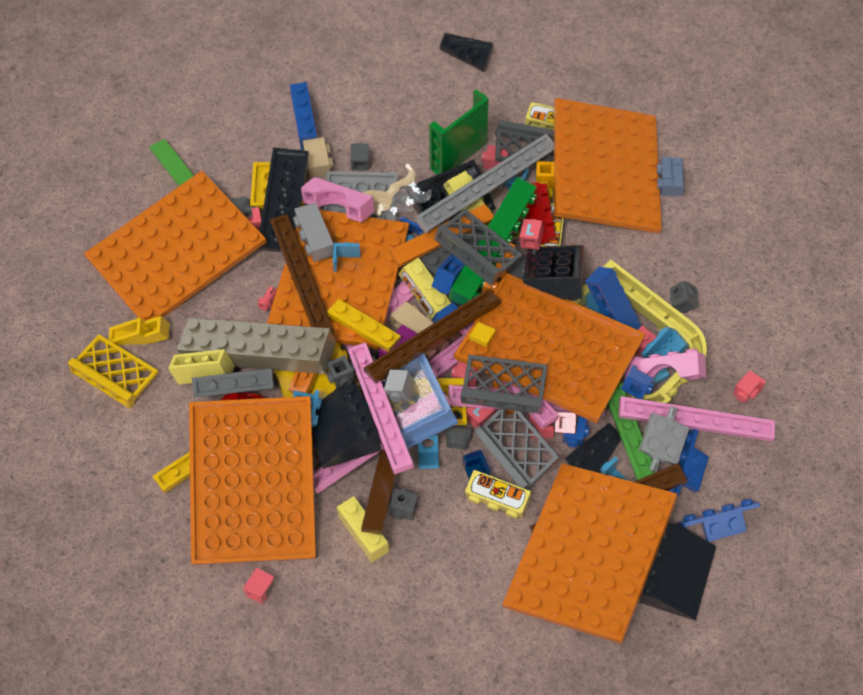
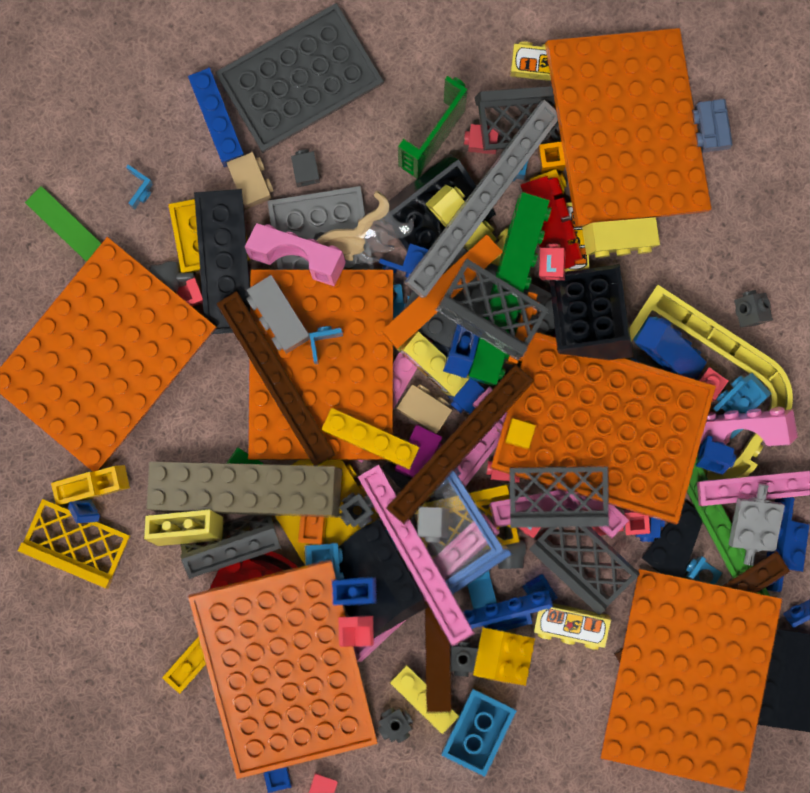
camera: 10 degrees left, 25 degrees up
(127, 347) = (83, 511): none -> blue tile
(224, 572) = (277, 779): none -> blue tile
(237, 151) = (143, 192): none -> dark azure bracket
(266, 301) = (237, 407): coral pin -> none
(317, 453) = (356, 631): none -> coral panel
(322, 420) = (354, 591): none -> blue slope
(333, 544) = (399, 716): none -> dark grey brick
(370, 104) = (299, 78): none -> dark grey plate
(402, 561) = (478, 732): none -> dark azure brick
(436, 504) = (504, 656): none -> yellow brick
(444, 477) = (509, 613): none -> blue bracket
(588, 230) = (621, 237): none -> light yellow brick

